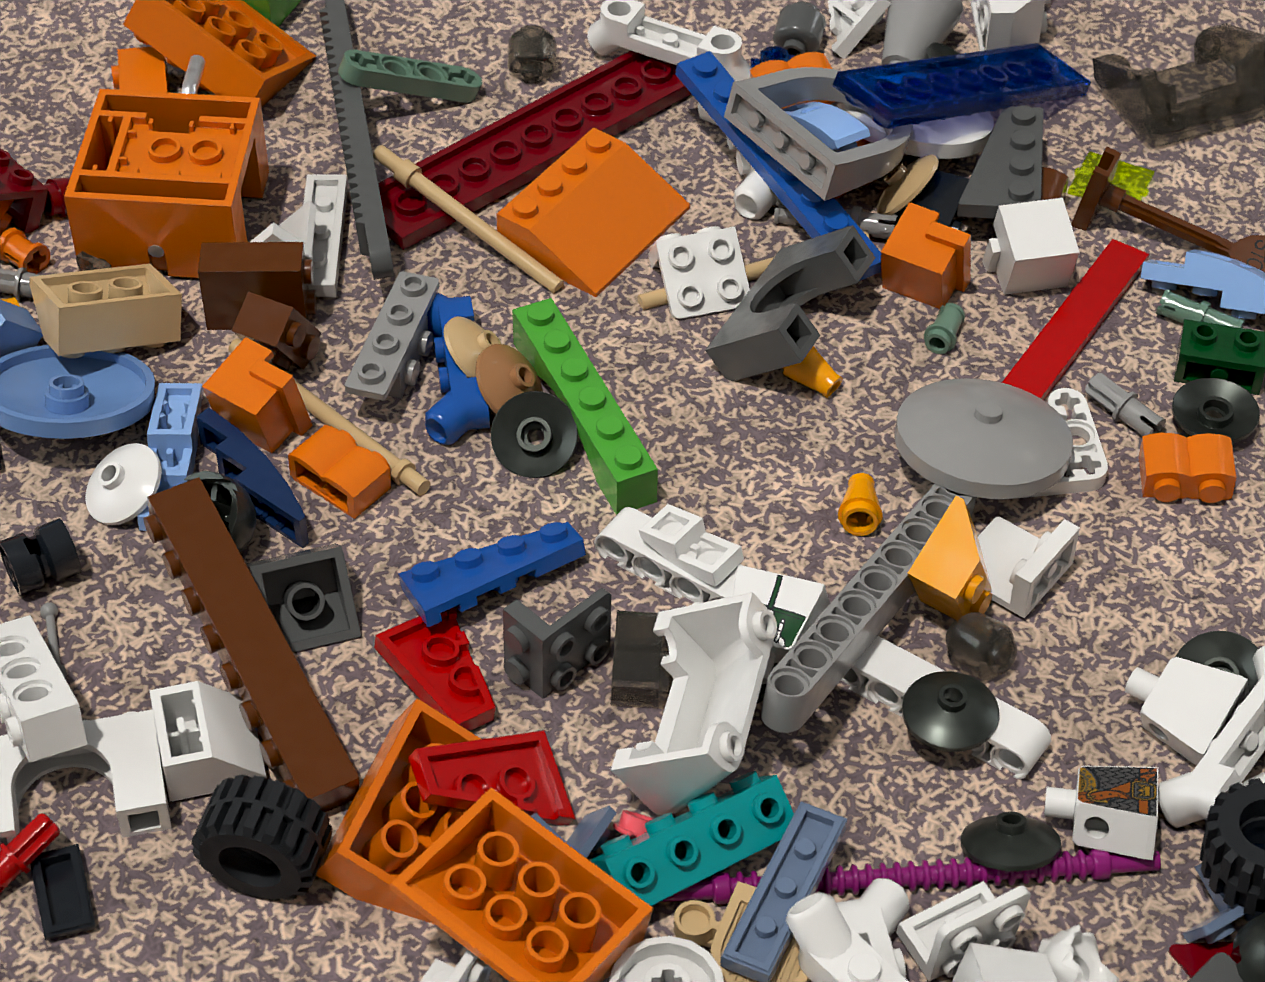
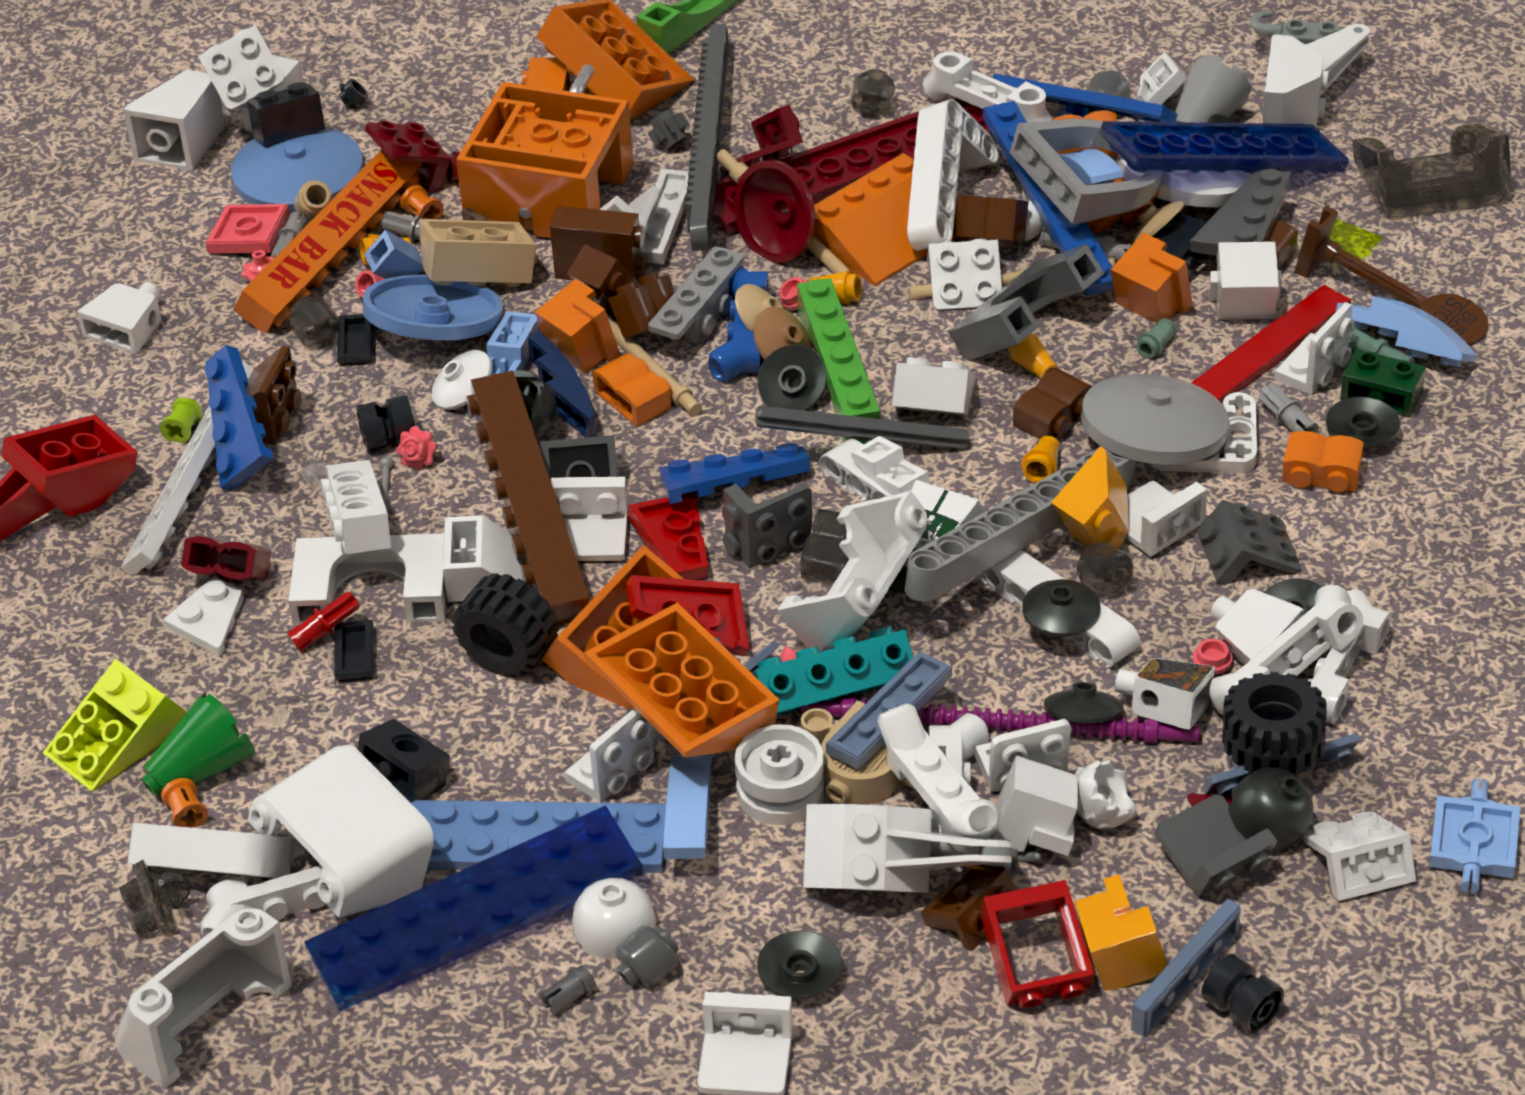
camera: 15 degrees right, 5 degrees down
(85, 587) = (416, 448): none -> coral plant
(302, 122) = (668, 129): none -> dark grey gear
(328, 356) = (637, 305): none -> reddish brown brick
(336, 656) = (594, 515): none -> white bracket
(409, 76) = (761, 98): sand green beam -> none
(436, 122) = (775, 136): none -> dark red bracket
(447, 220) = (774, 211): none -> dark red dish
(501, 319) = (788, 293): none -> coral plate
(566, 298) = (847, 286): none -> light orange cone
(637, 493) = (861, 427): none -> dark grey axle
(645, 113) = (944, 143): none -> white beam
(707, 427) = (933, 388): none -> white slope
(715, 200) = (991, 219): none -> reddish brown brick
(797, 40) = (1097, 101): none -> blue tile
(853, 431) = (1050, 405): none -> reddish brown brick
(1129, 582) = (1239, 534): none -> dark grey bracket
(1133, 332) = (1319, 354): none -> white bracket
(1140, 747) = (1213, 653): none -> coral plate

